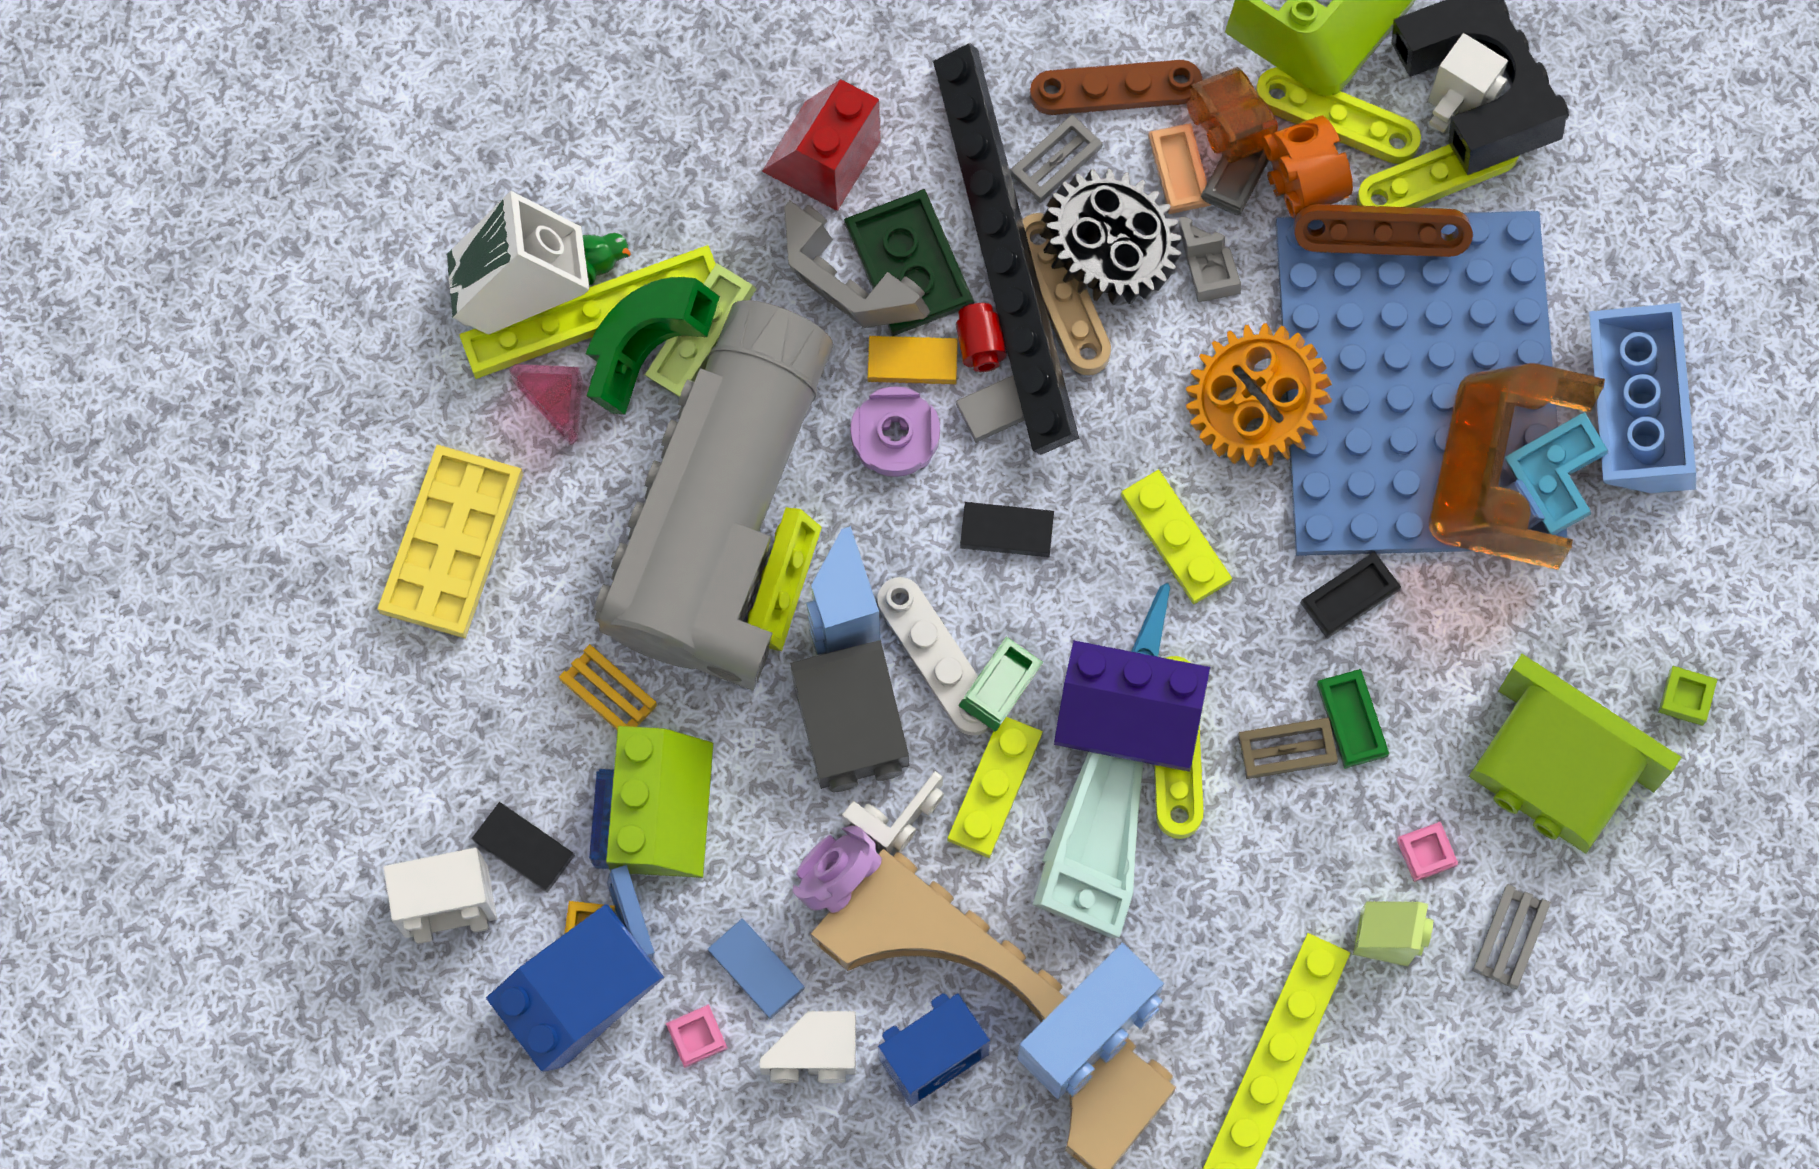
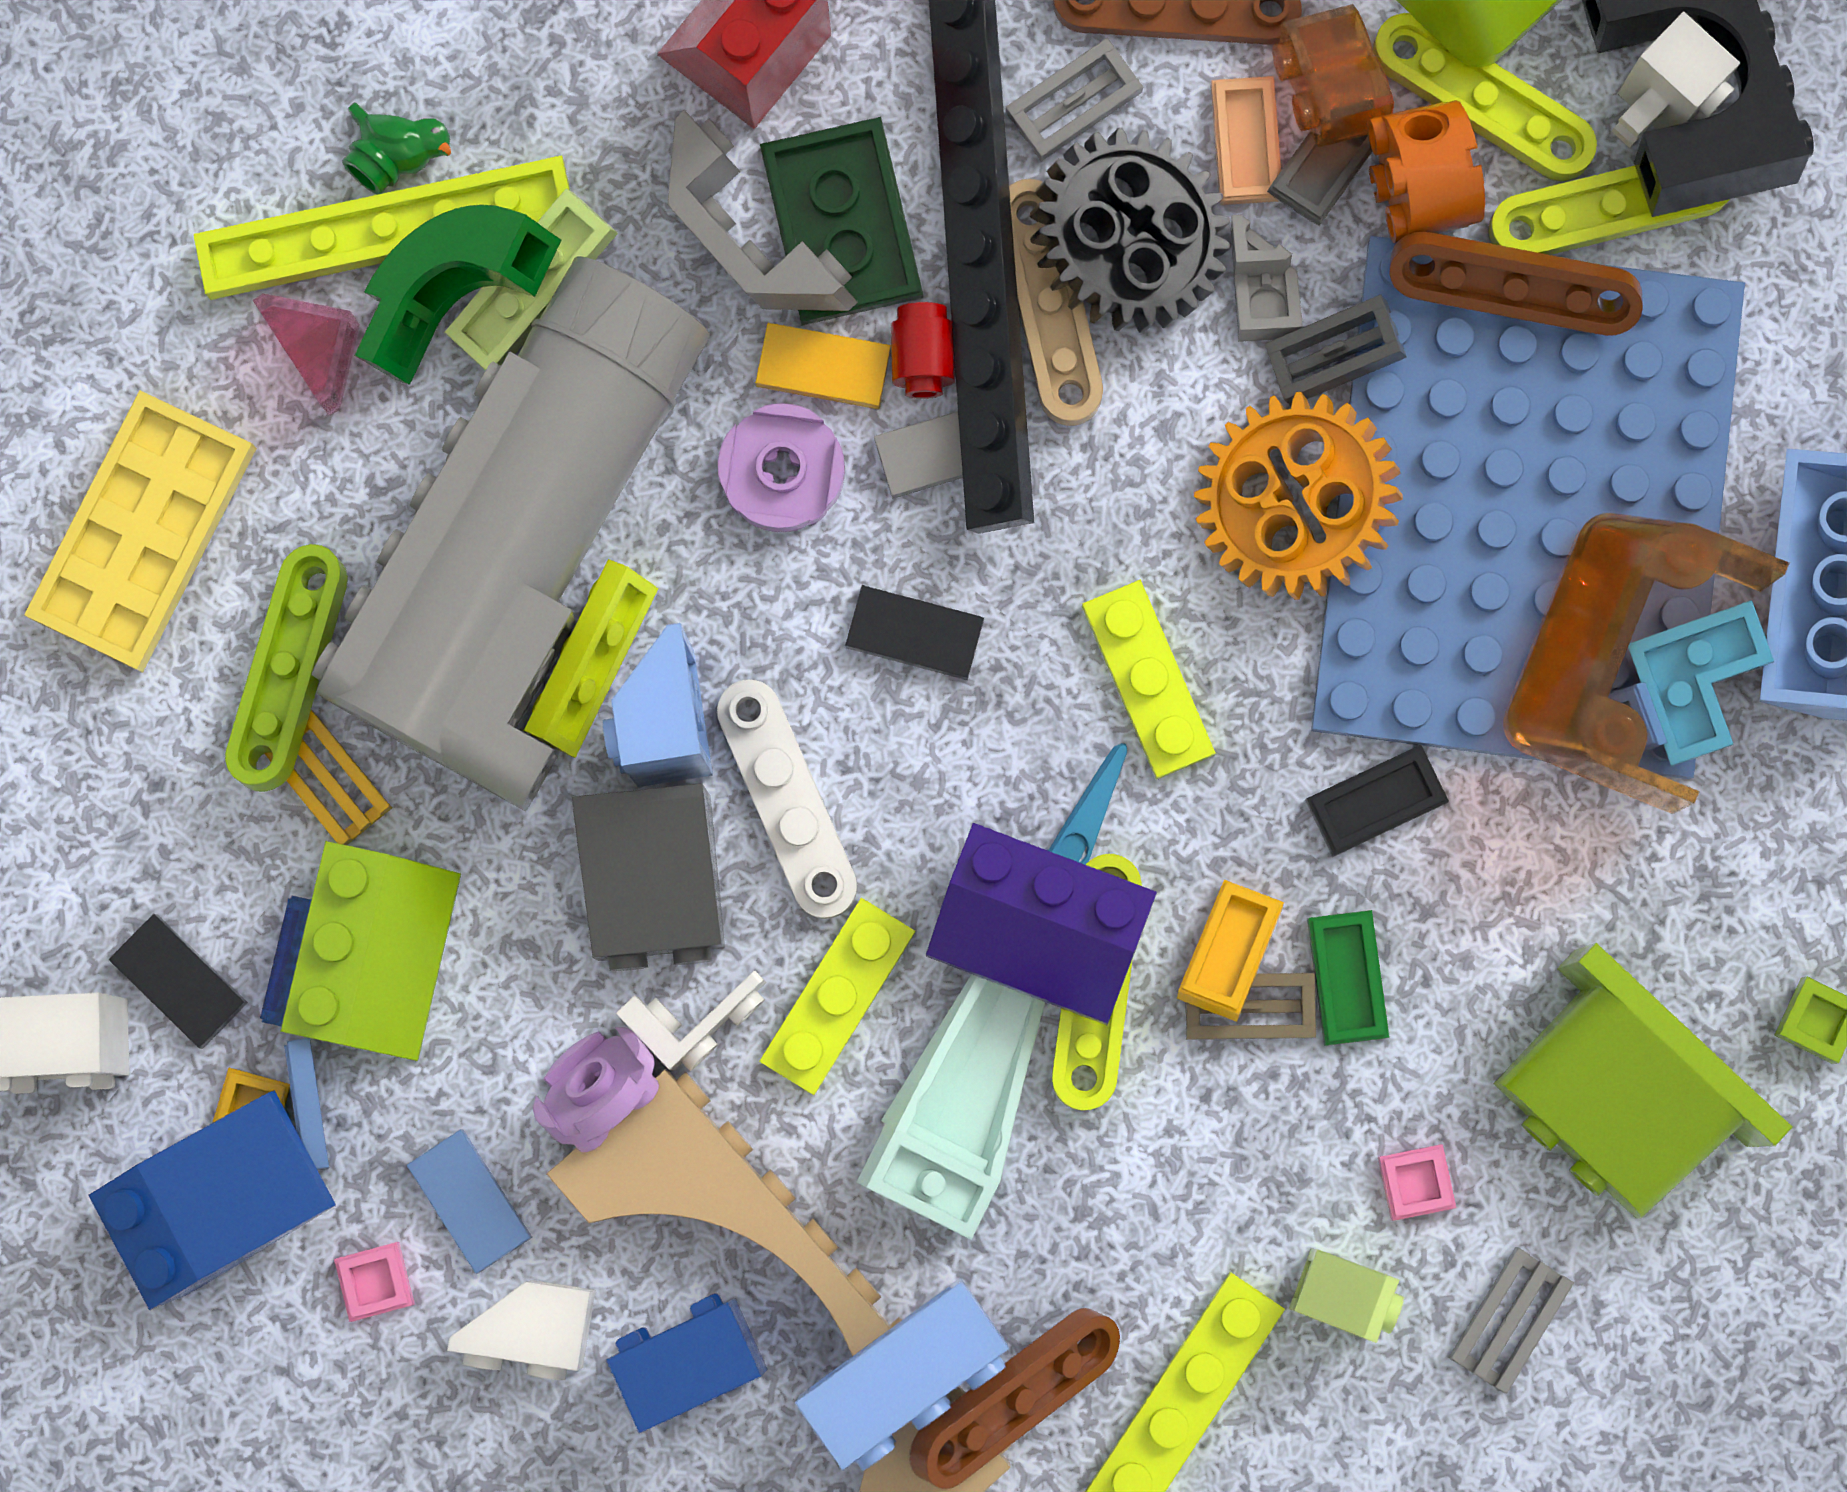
camera: 10 degrees right, 10 degrees up
(515, 265) = (283, 150): white slope -> none
(569, 617) = (280, 677): none -> lime plate
(1000, 684) = (867, 856): tile -> none
(1170, 1036) = (1015, 1399): none -> dark orange plate
(1258, 282) = (1324, 329): none -> dark grey tile
(1267, 710) = (1230, 950): none -> yellow tile

